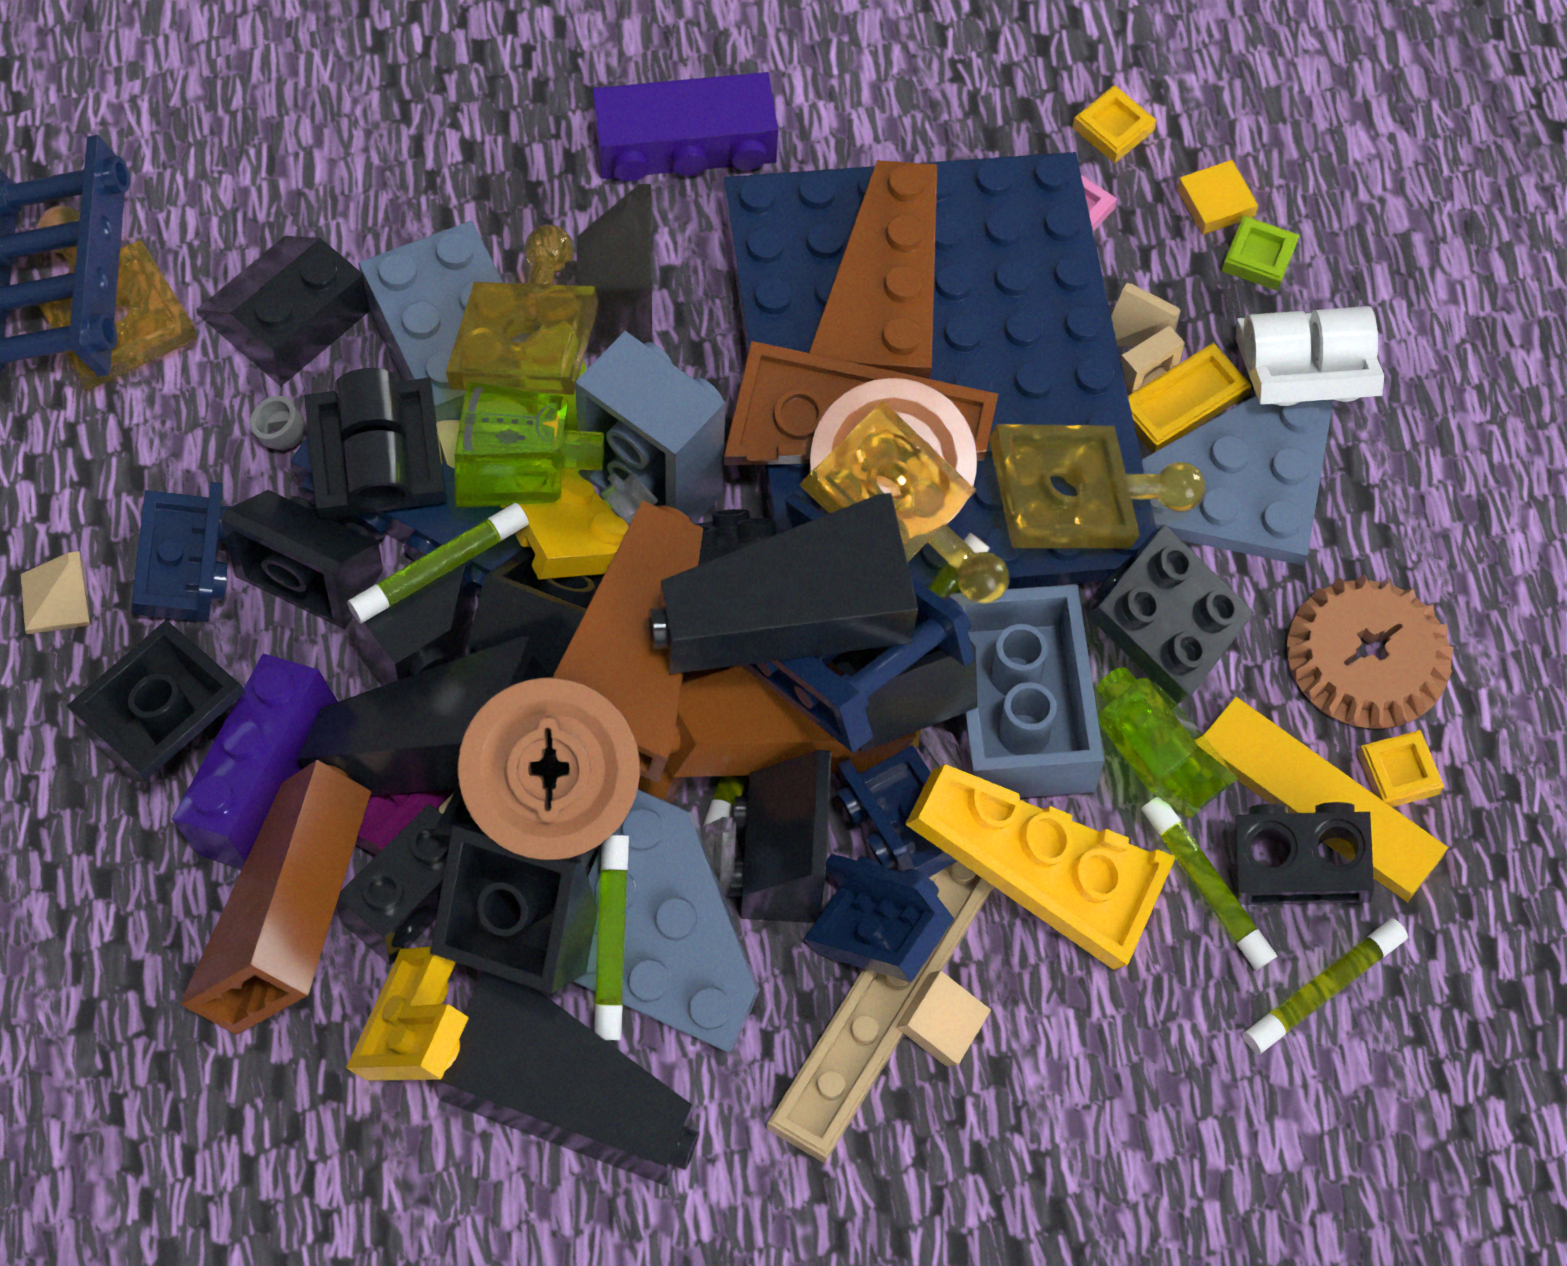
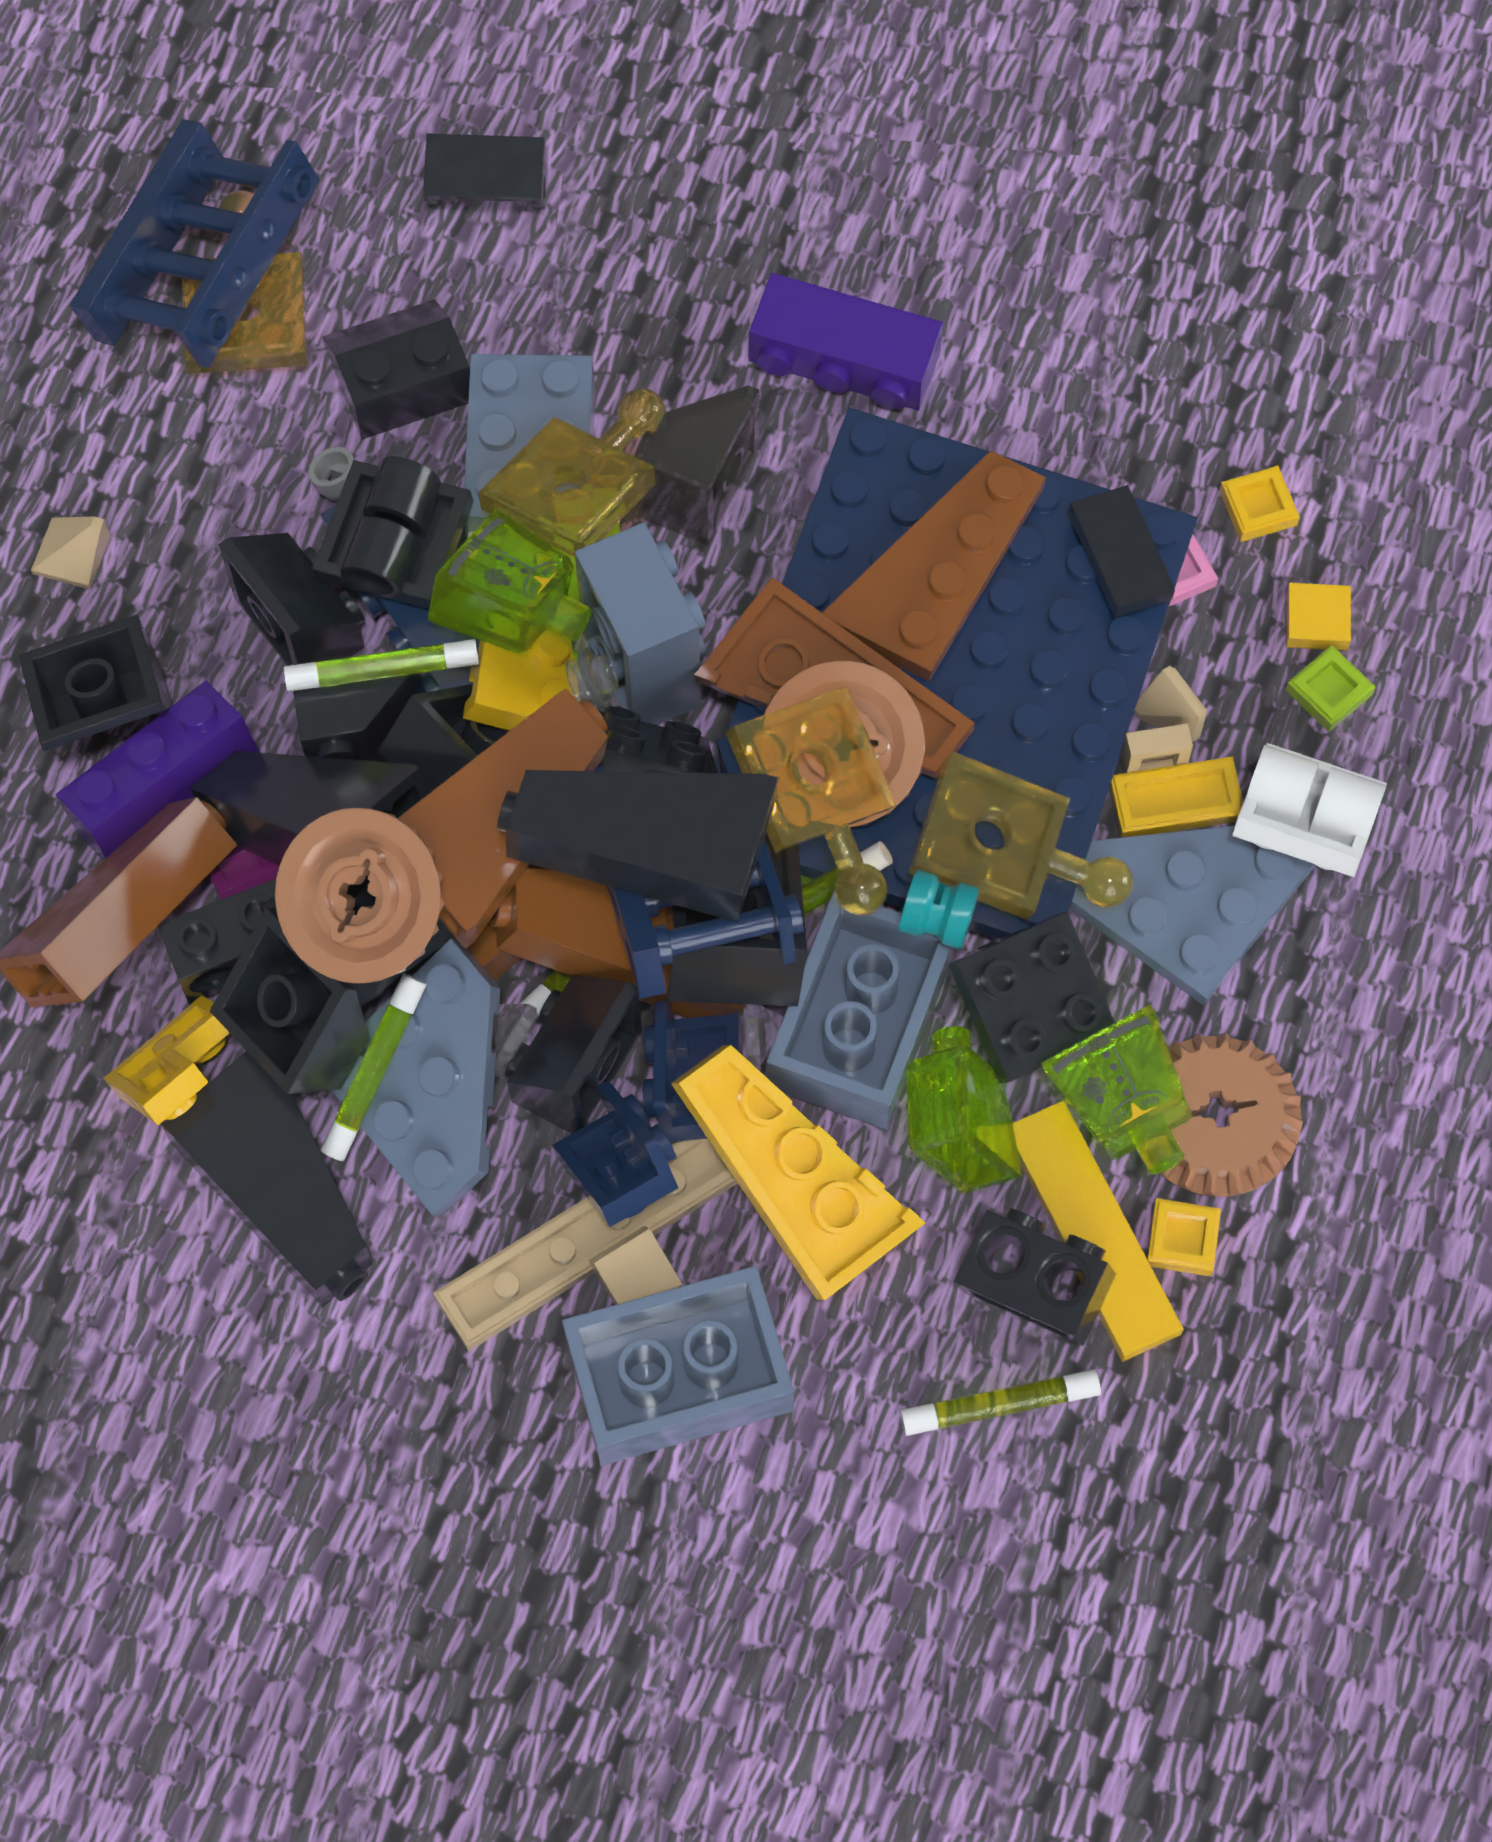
camera: 30 degrees right, 5 degrees up
(178, 555) = (184, 562): dark blue bracket -> none
(275, 100) = (485, 168): none -> black hinge
(1034, 202) = (1121, 551): none -> black tile
(1034, 1081) = (678, 1365): none -> sand blue brick
(1059, 567) = (938, 909): none -> teal wheel
(1209, 883) = (942, 1262): clear neon green bar -> none
(1292, 660) = (1125, 1089): none -> clear neon green torso

